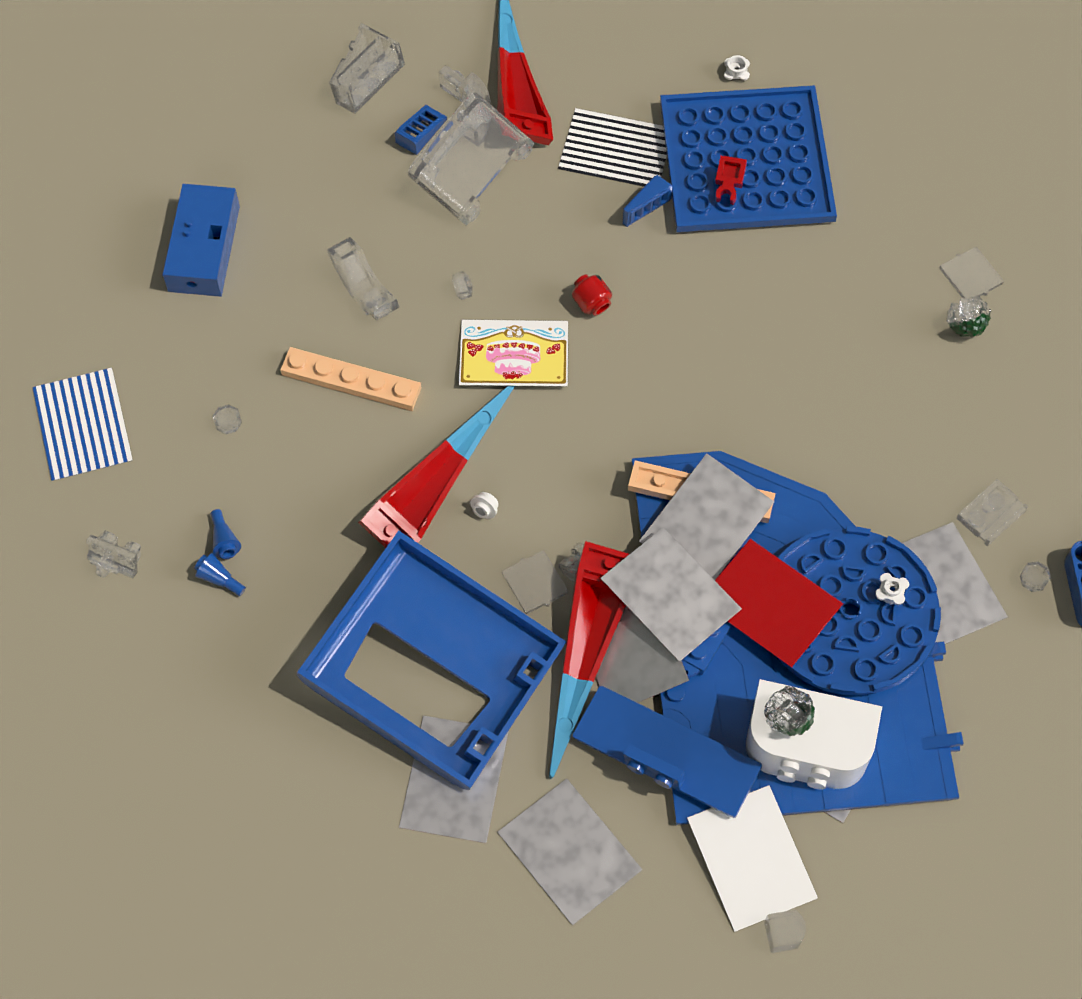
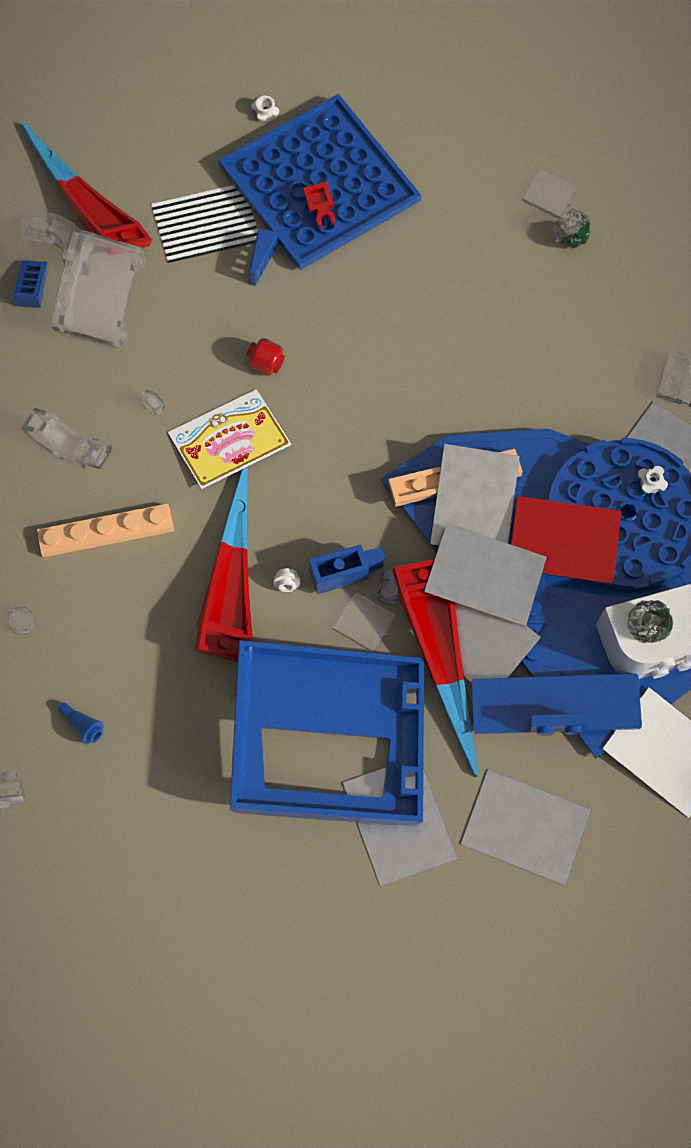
camera: 35 degrees left, 5 degrees up
(213, 571) = (93, 758): blue cone -> none
(543, 520) = (344, 567): none -> blue hinge

